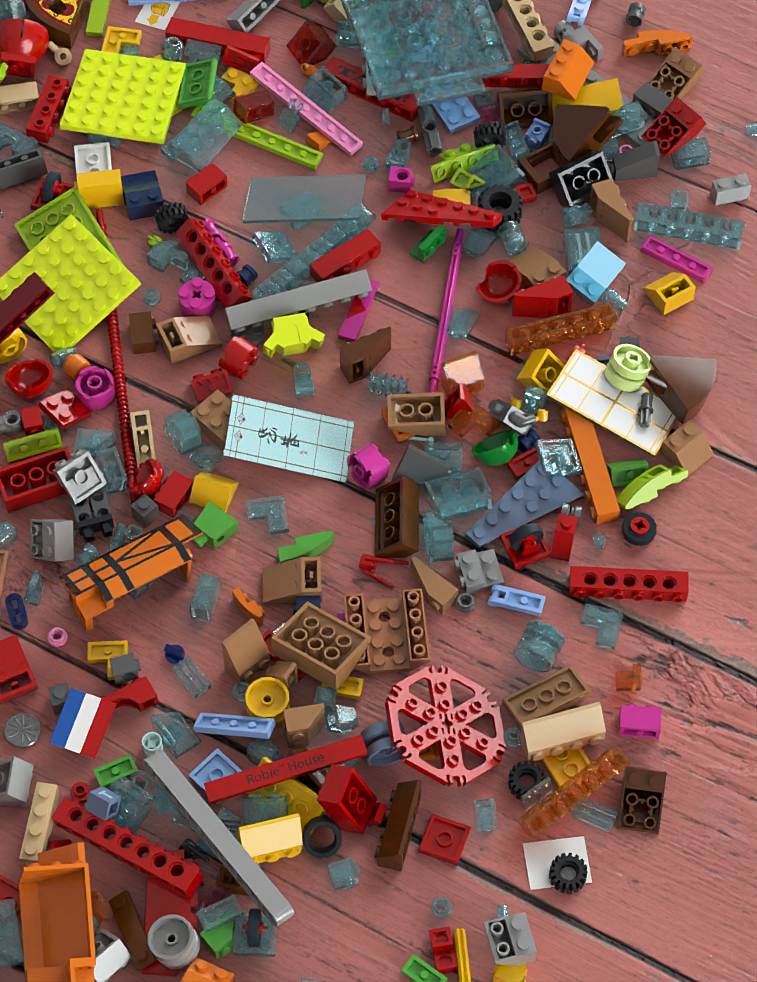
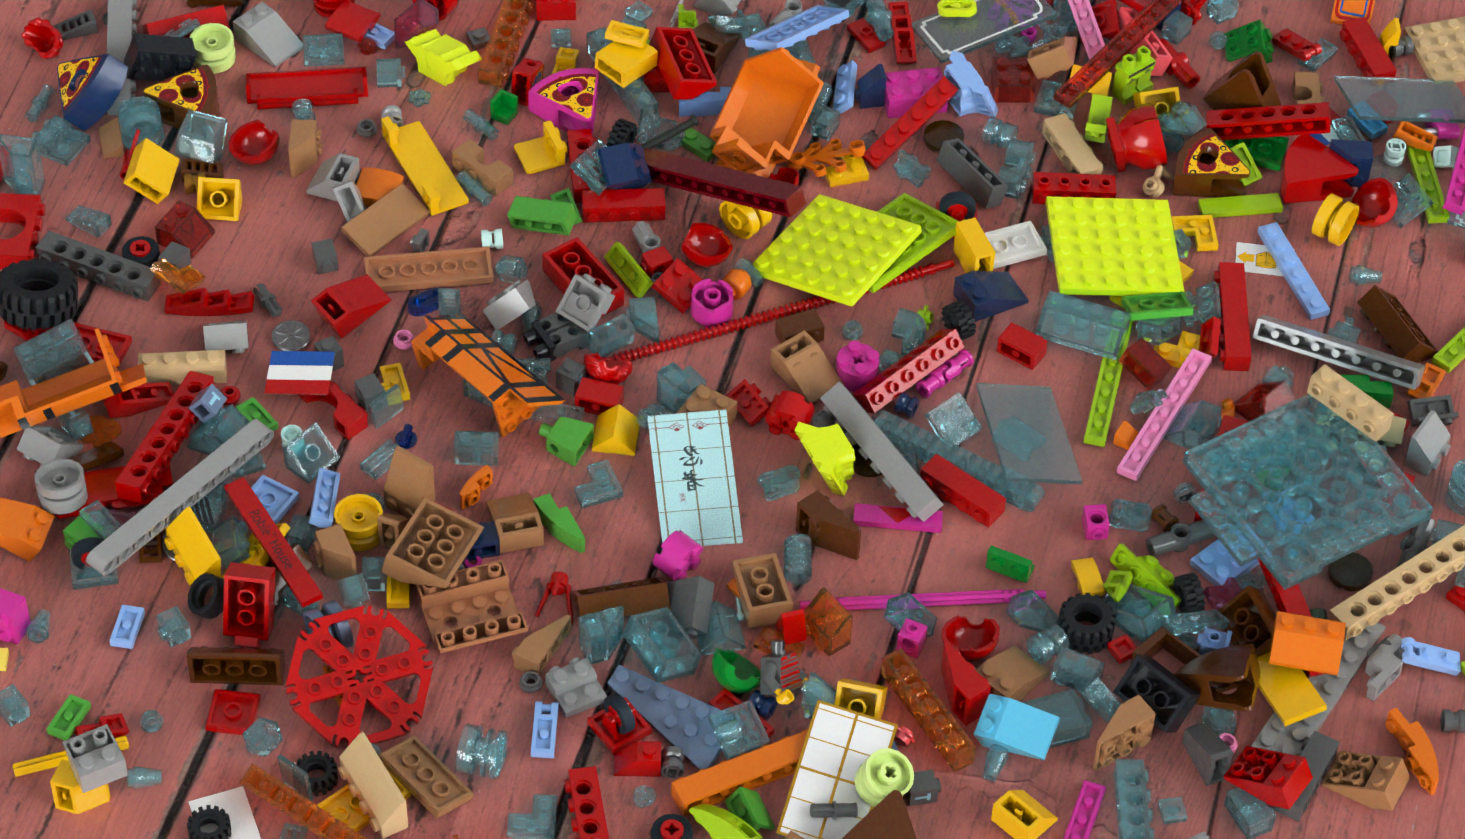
camera: 75 degrees right, 10 degrees down
(142, 436) = (674, 349): tan slope -> none
(142, 658) = (386, 406): none -> clear light blue piece
(172, 49) = (1198, 274): clear light blue head -> none
(288, 29) = (1279, 374): none -> clear light blue piece
(332, 913) = (127, 626): none -> light blue plate
(370, 164) = (1110, 492): clear light blue plate -> none
(437, 210) = (1055, 554): red wing -> none
(486, 325) = (912, 637): none -> dark pink brick
(542, 226) = (1075, 669): none -> clear light blue brick
(632, 116) = (1268, 728): clear light blue slope -> none

